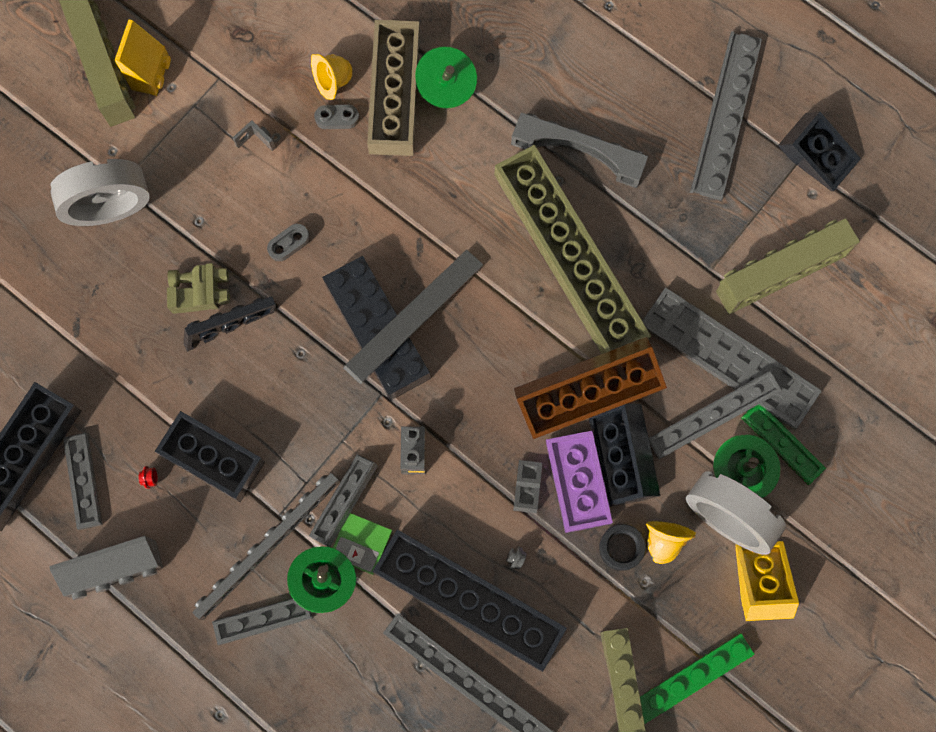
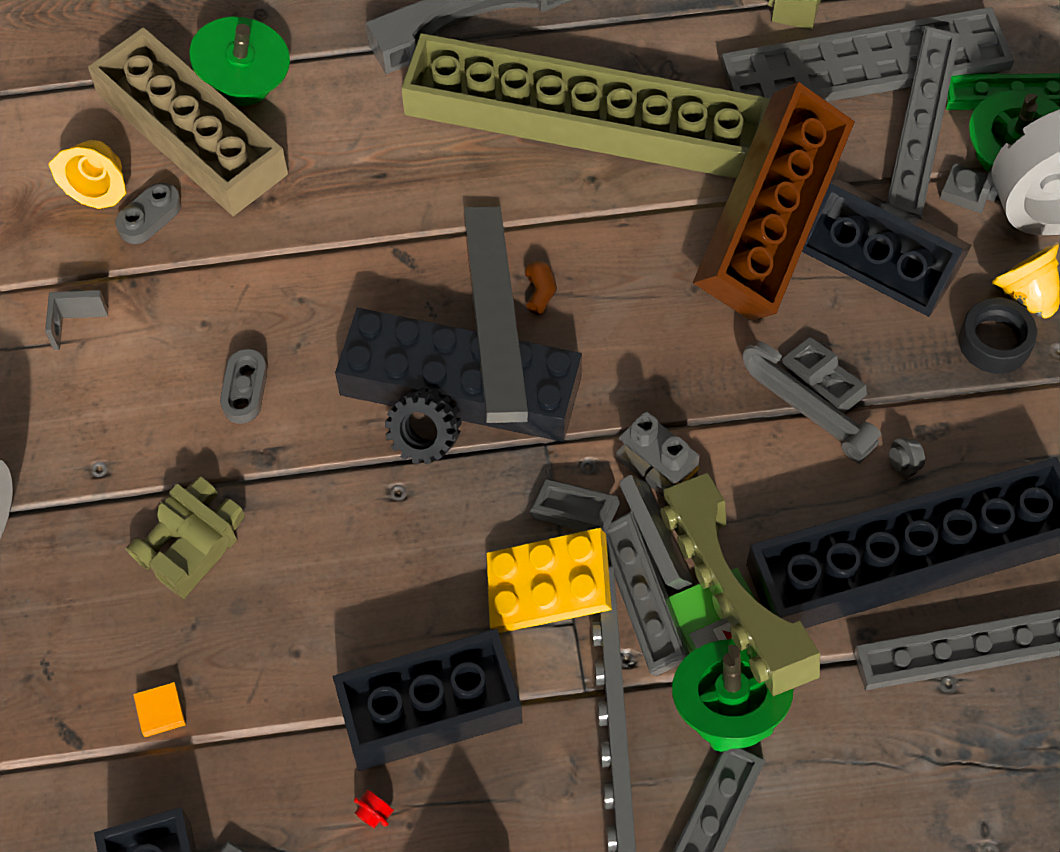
camera: 45 degrees left, 15 degrees down
(116, 352) = (159, 709): none -> light orange tile
(227, 322) = (268, 536): black wing -> none
(309, 457) = (548, 581): none -> yellow plate
(324, 333) = (411, 443): none -> black tyre
(351, 585) = (777, 649): none -> olive arch
(357, 435) = (574, 506): none -> dark grey tile
(376, 482) = (656, 533): none -> dark grey tile
(460, 320) = (545, 285): none -> reddish brown arm
(506, 528) = (855, 438): none -> dark grey piece
(578, 481) = (871, 317): medium lavender plate -> none
(697, 464) = (969, 188): none -> dark grey bracket

